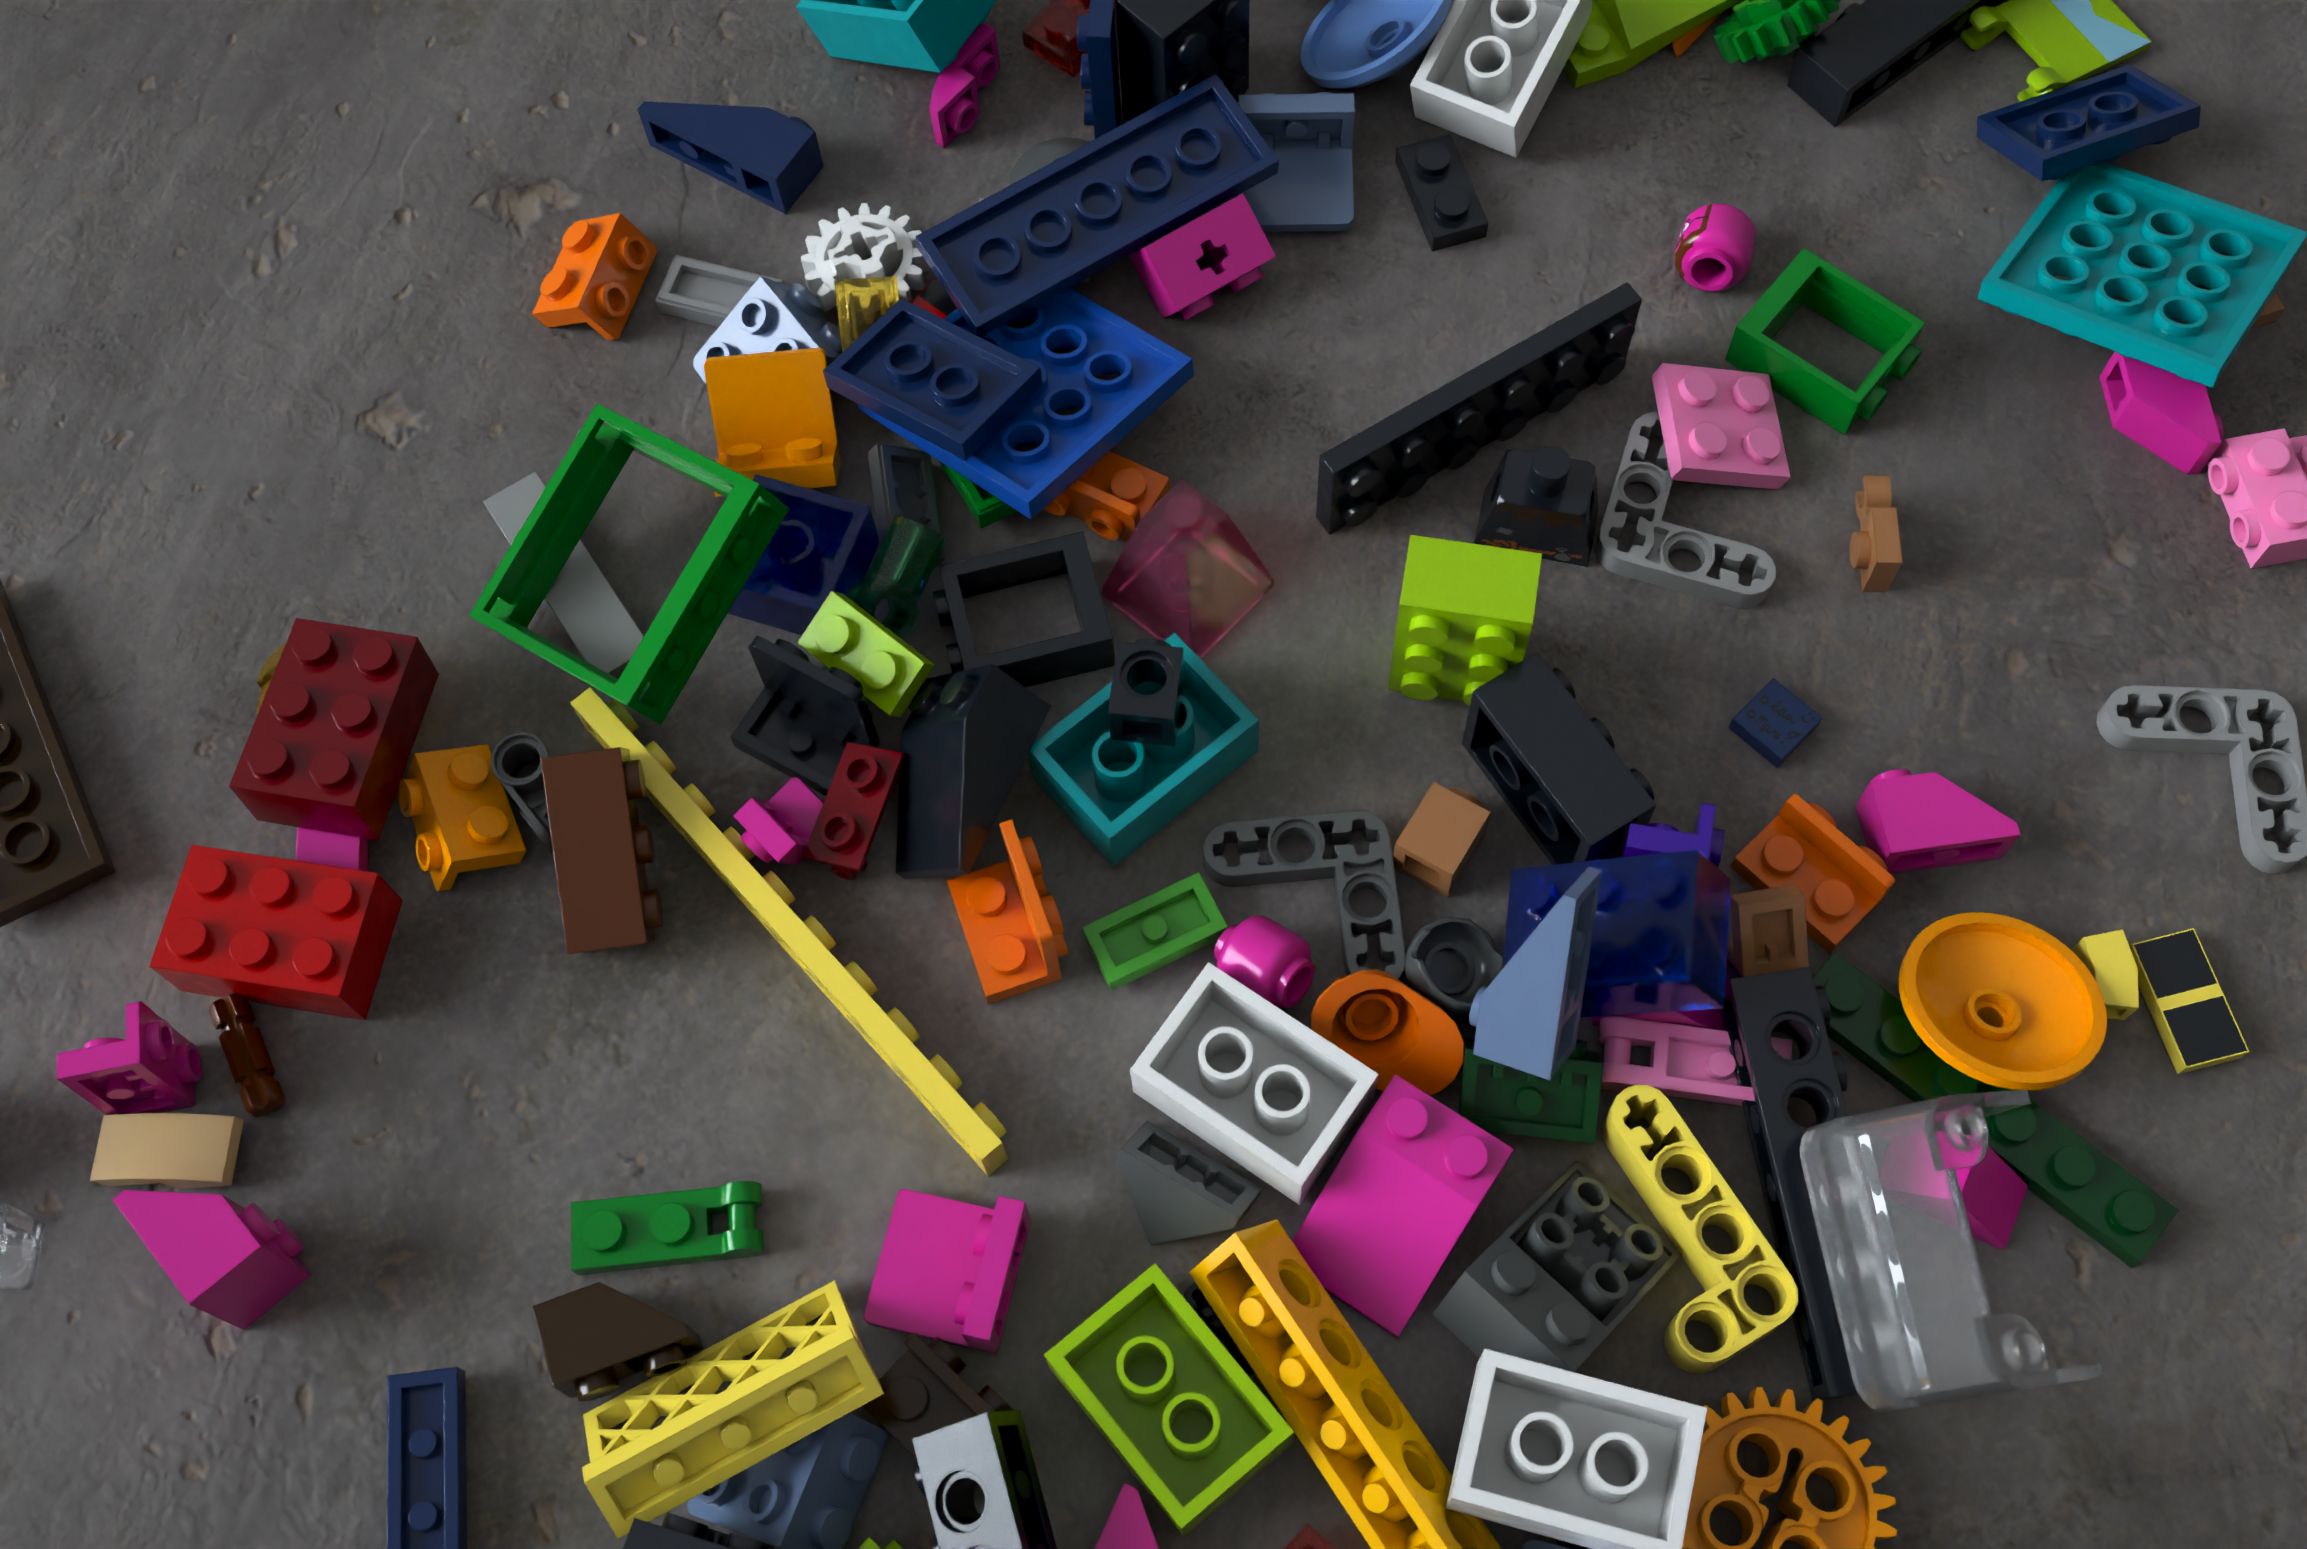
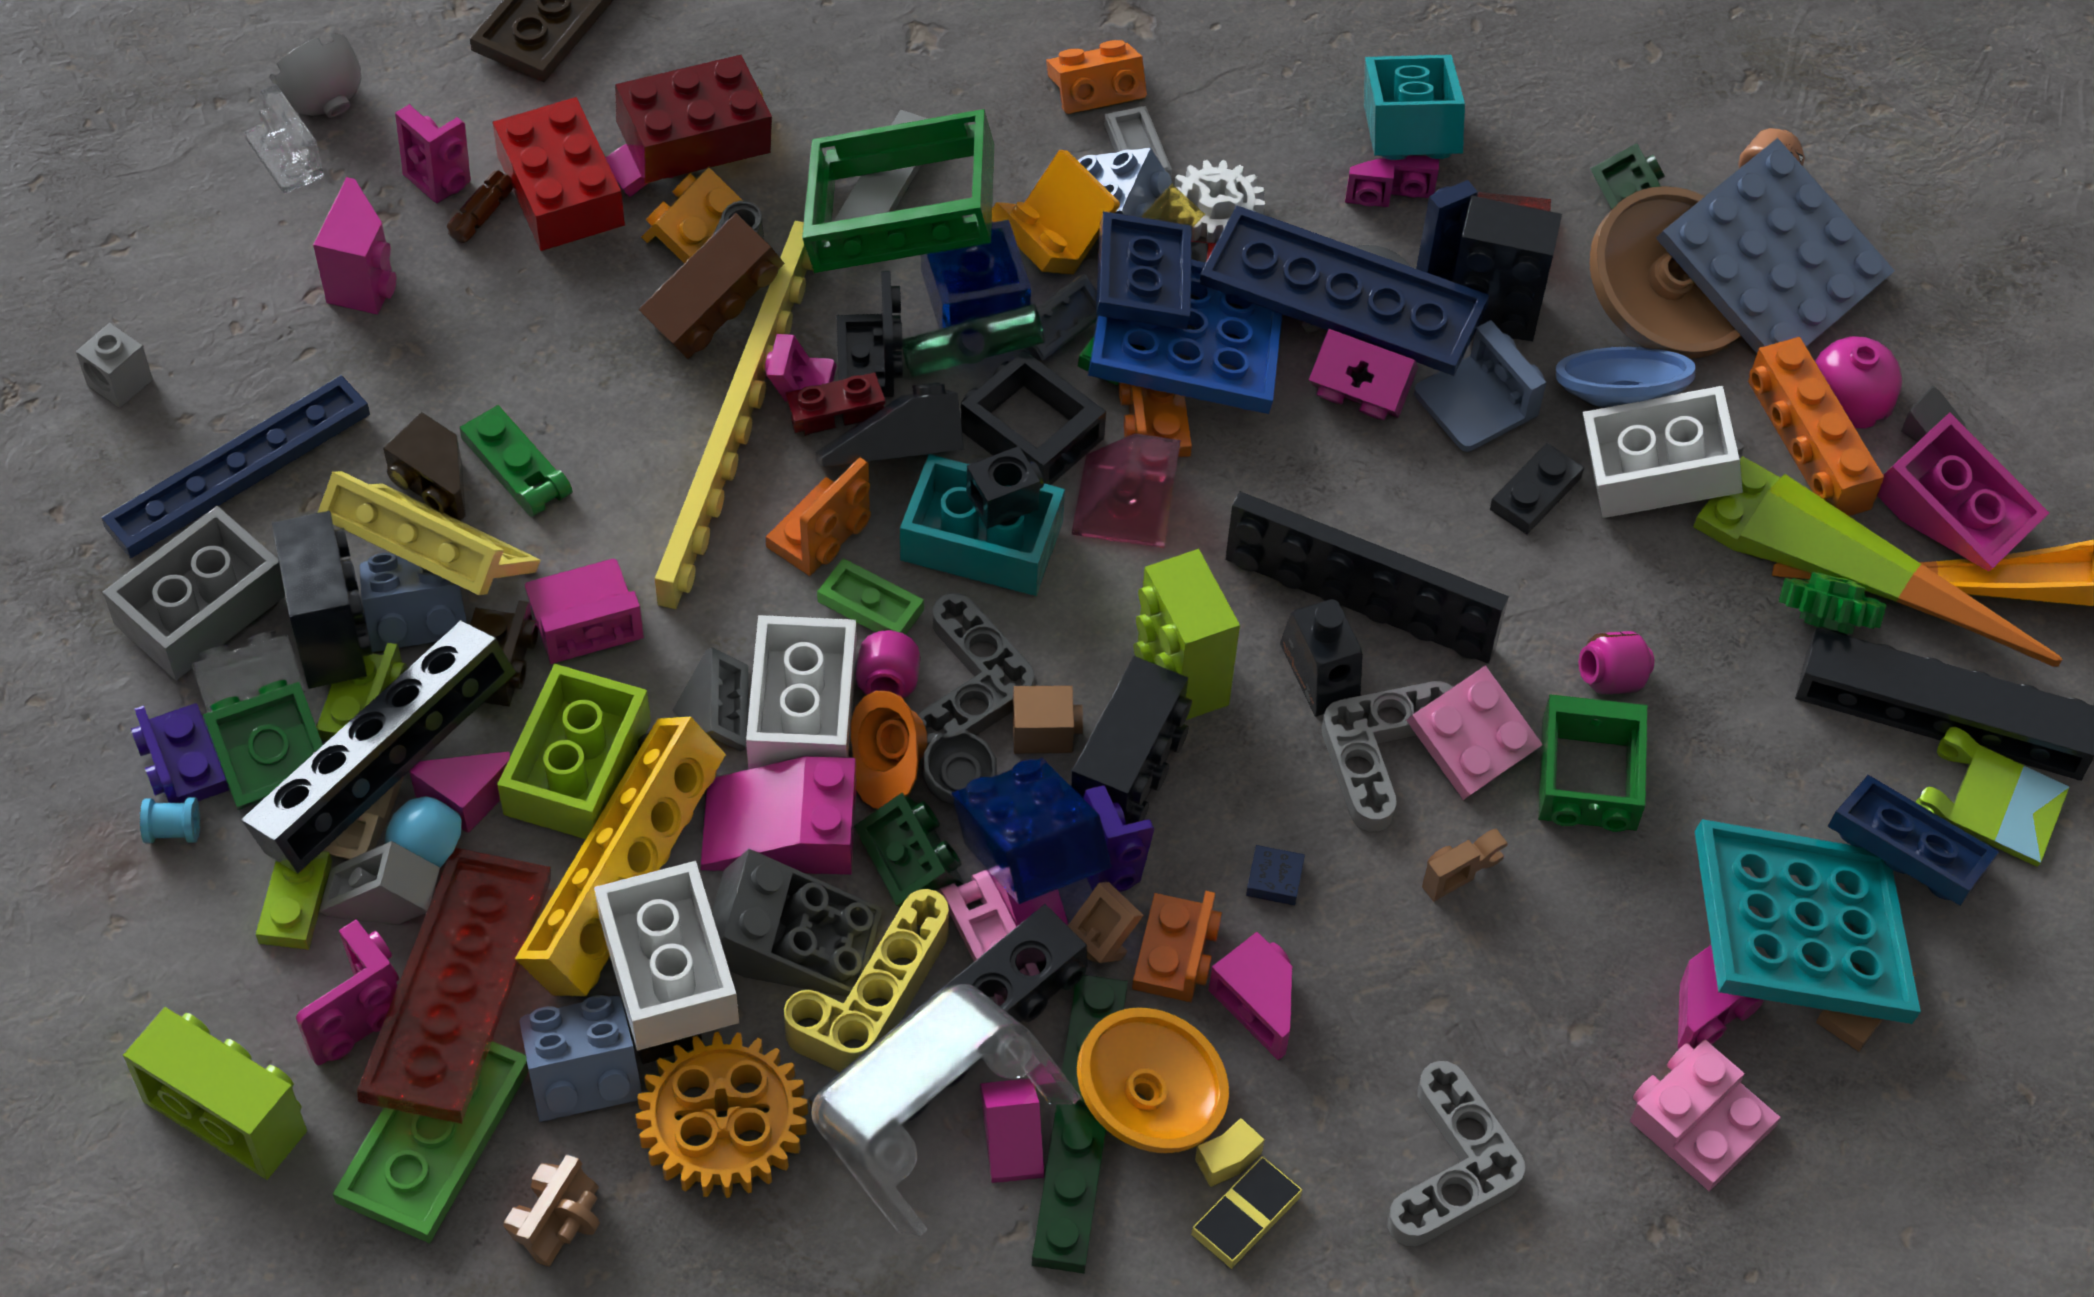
camera: 50 degrees right, 10 degrees down
(167, 1149) = (400, 202): tan slope -> none
(738, 145) = (1249, 95): dark blue slope -> none
(859, 644) = (930, 340): lime plate -> none
(1535, 1002) = (958, 786): sand blue slope -> none

